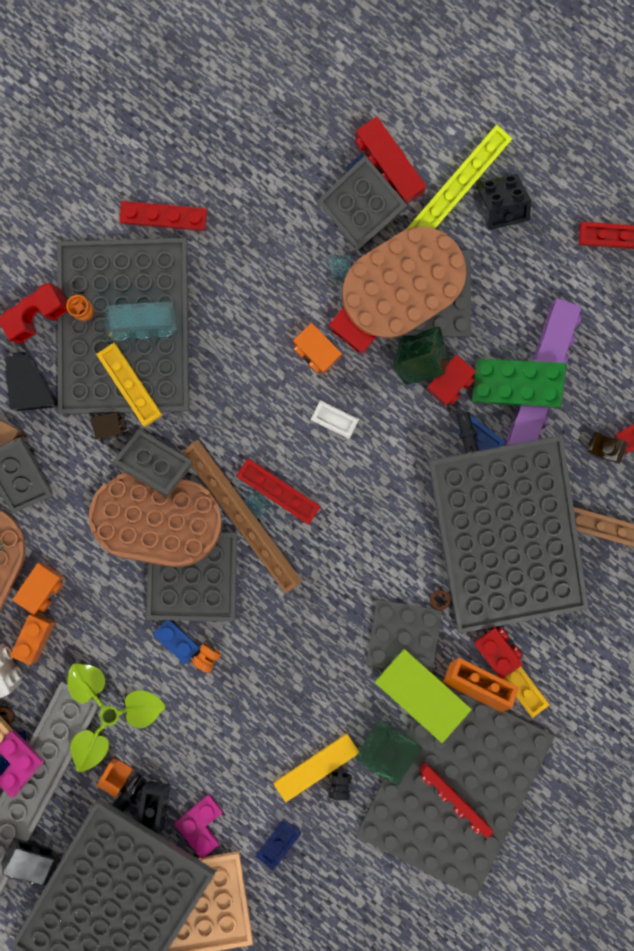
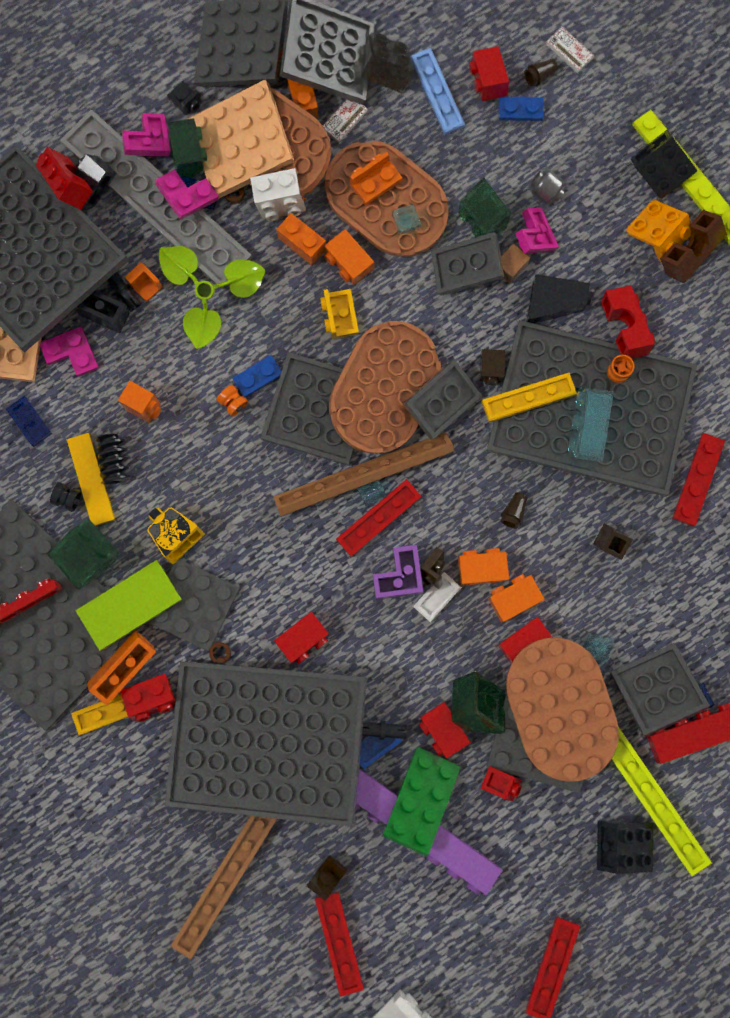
camera: 105 degrees right, 5 degrees down
(29, 894) = (59, 174): none -> red arch
(96, 580) = (340, 312): none -> yellow bracket
(232, 744) = (140, 402): none -> orange brick
(239, 371) = (514, 512): none -> dark brown cone
(241, 276) = (613, 541): none -> dark brown brick
(292, 752) = (112, 459): none -> black piece
(297, 384) = (483, 568): none -> orange brick
(307, 429) = (431, 568): none -> dark brown bracket
(327, 451) = (405, 579): none -> medium lavender brick
(346, 675) = (173, 533): none -> torso
(406, 529) = (302, 638): none -> red brick
(482, 319) = (501, 784): none -> red bracket

